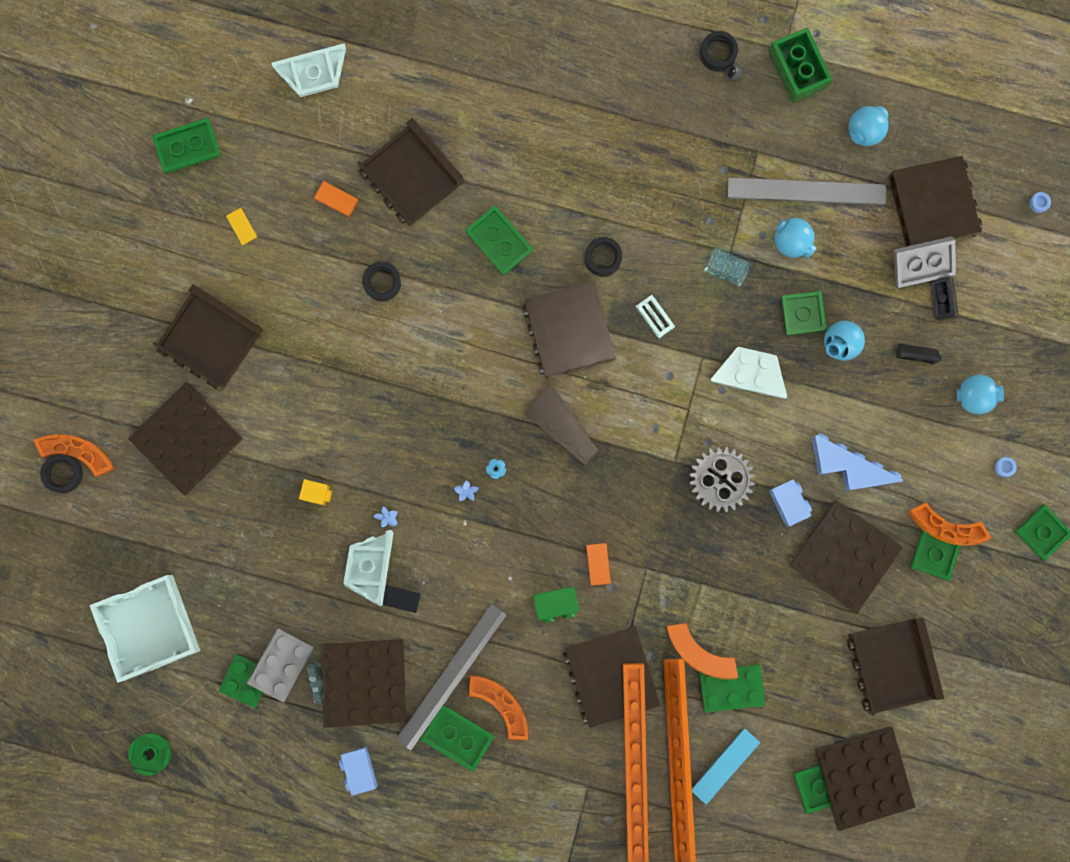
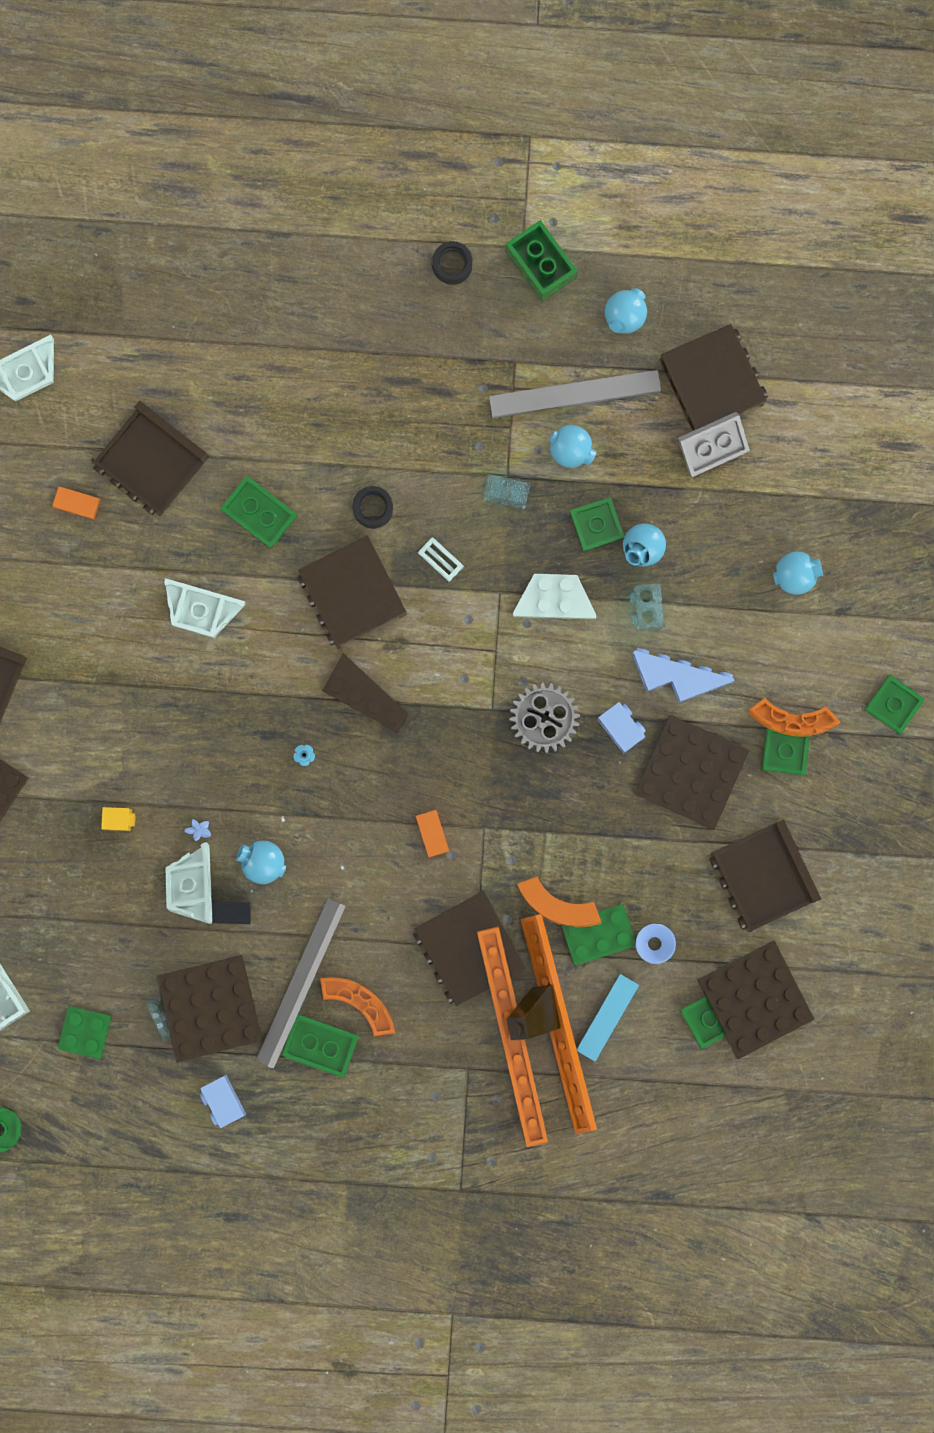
camera: 10 degrees left, 0 degrees up
(280, 665) = (117, 1008): light grey plate -> none
(396, 281) = (142, 564): black tyre -> none
(428, 317) = (200, 609): none -> light aqua wing
(438, 558) = (261, 862): none -> medium azure brick
(466, 491) = (277, 785): light blue plant -> none
(555, 604) = (393, 883): green brick -> none
(660, 751) = (534, 1014): none -> dark brown slope
(734, 72) = (473, 282): dark grey hinge -> none
(793, 711) = (667, 943): none -> light blue piece
(841, 399) = (652, 607): none -> clear light blue brick
(918, 354) = (729, 542): black slope -> none
(944, 298) = (743, 478): black slope -> none
(1005, 467) = (841, 643): light blue tile -> none
(1040, 202) = (824, 355): light blue tile -> none

